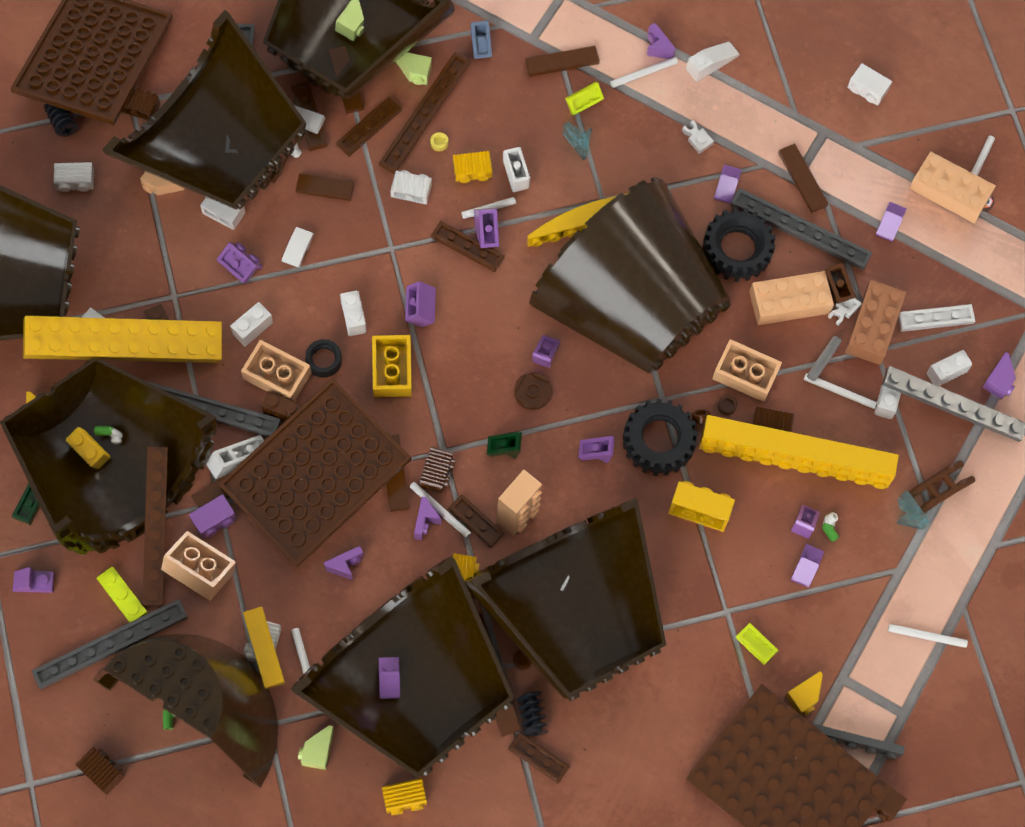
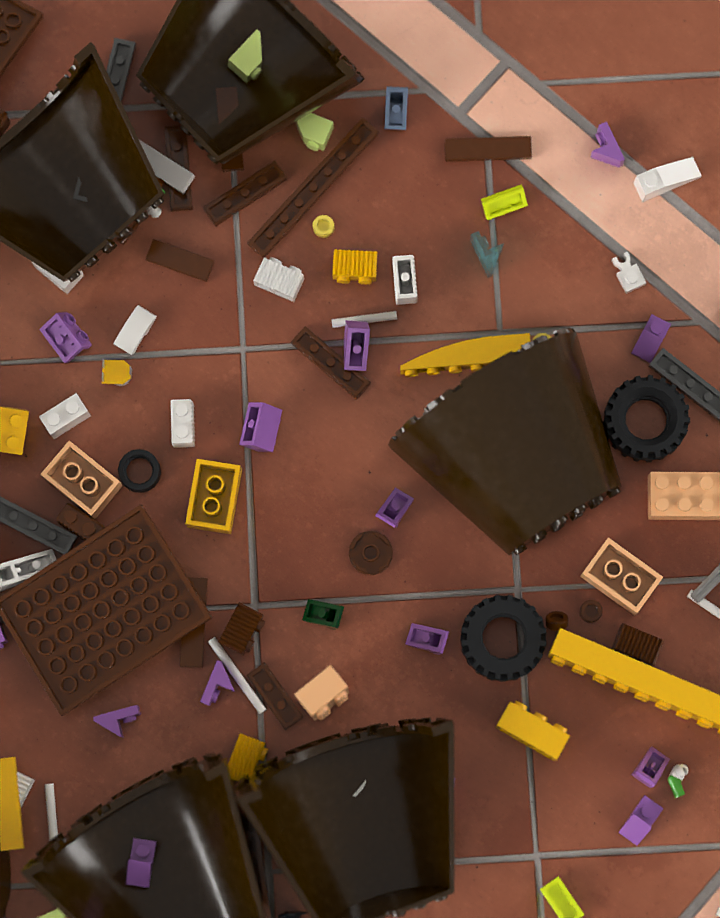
camera: 20 degrees right, 10 degrees up
(288, 283) = (116, 372): none -> yellow piece
(646, 71) = (582, 179): white bar -> none

